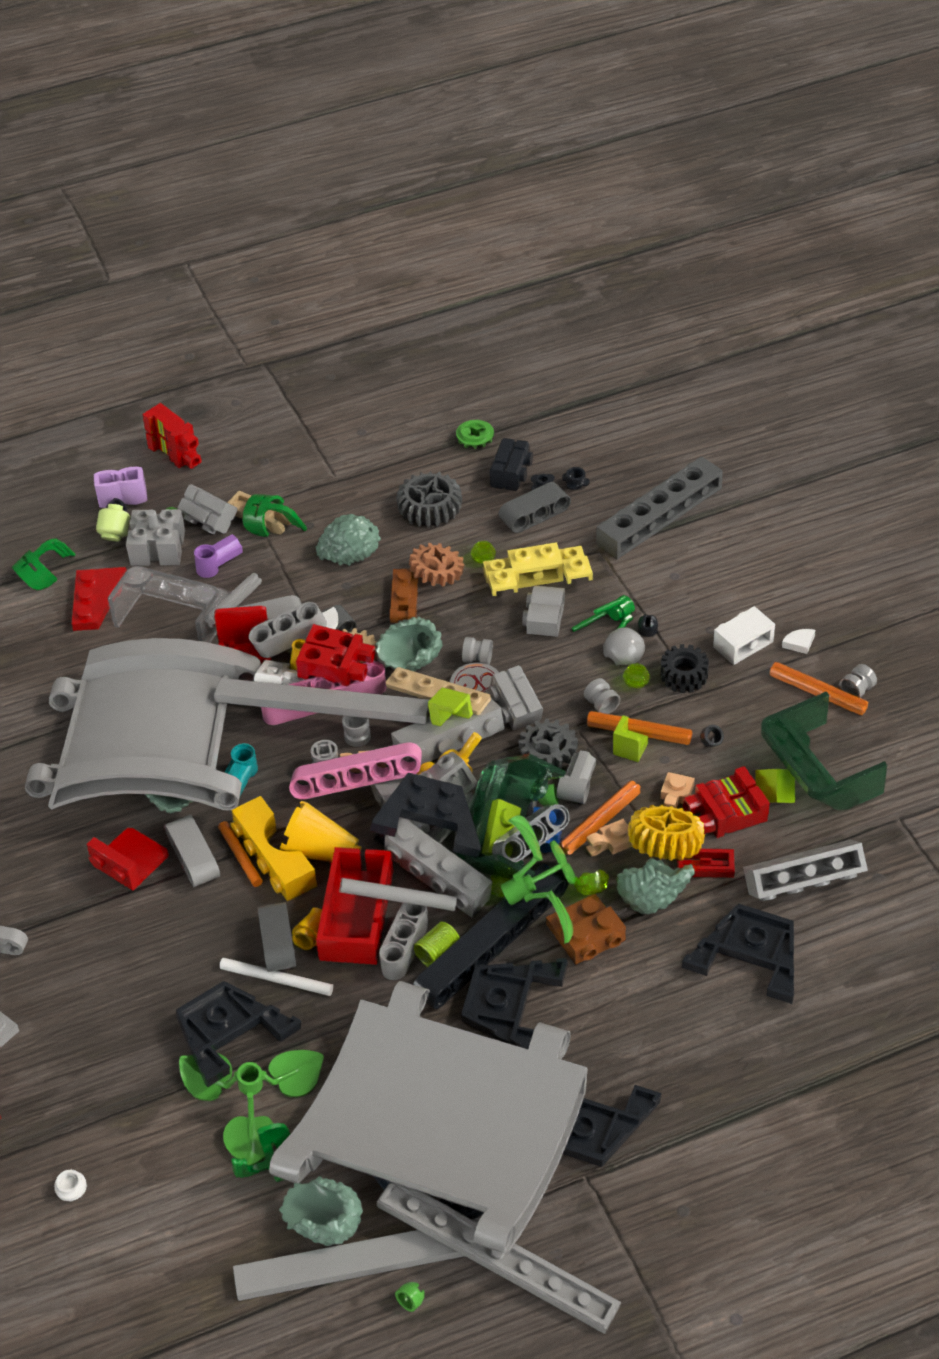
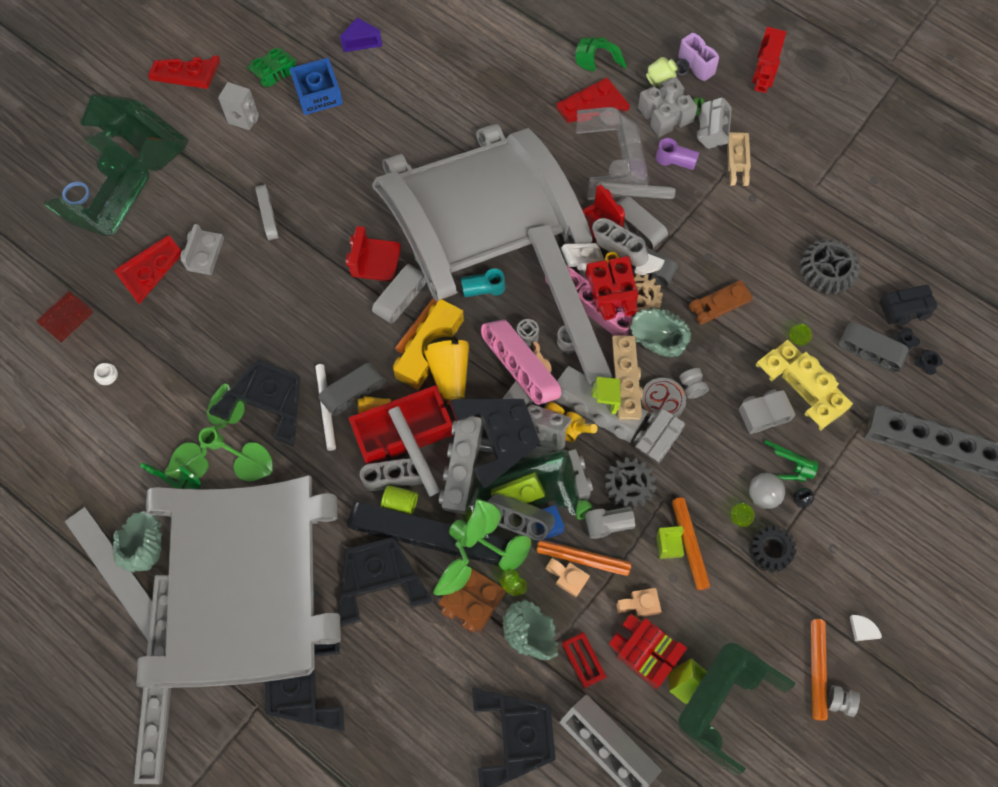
camera: 60 degrees right, 20 degrees up
(256, 524) = (728, 157): green helmet -> none
(348, 540) = (743, 231): sand green piece -> none
(410, 1296) = (108, 634): bright green hinge -> none
(436, 564) = (772, 313): nougat gear -> none
(475, 427) = (936, 260): bright green gear -> none
(600, 695) = (702, 499): light grey wheel -> none
(666, 832) = (583, 631): yellow gear -> none
(715, 740) = (711, 609): black hinge -> none
(743, 635) = (837, 579): white brick -> none

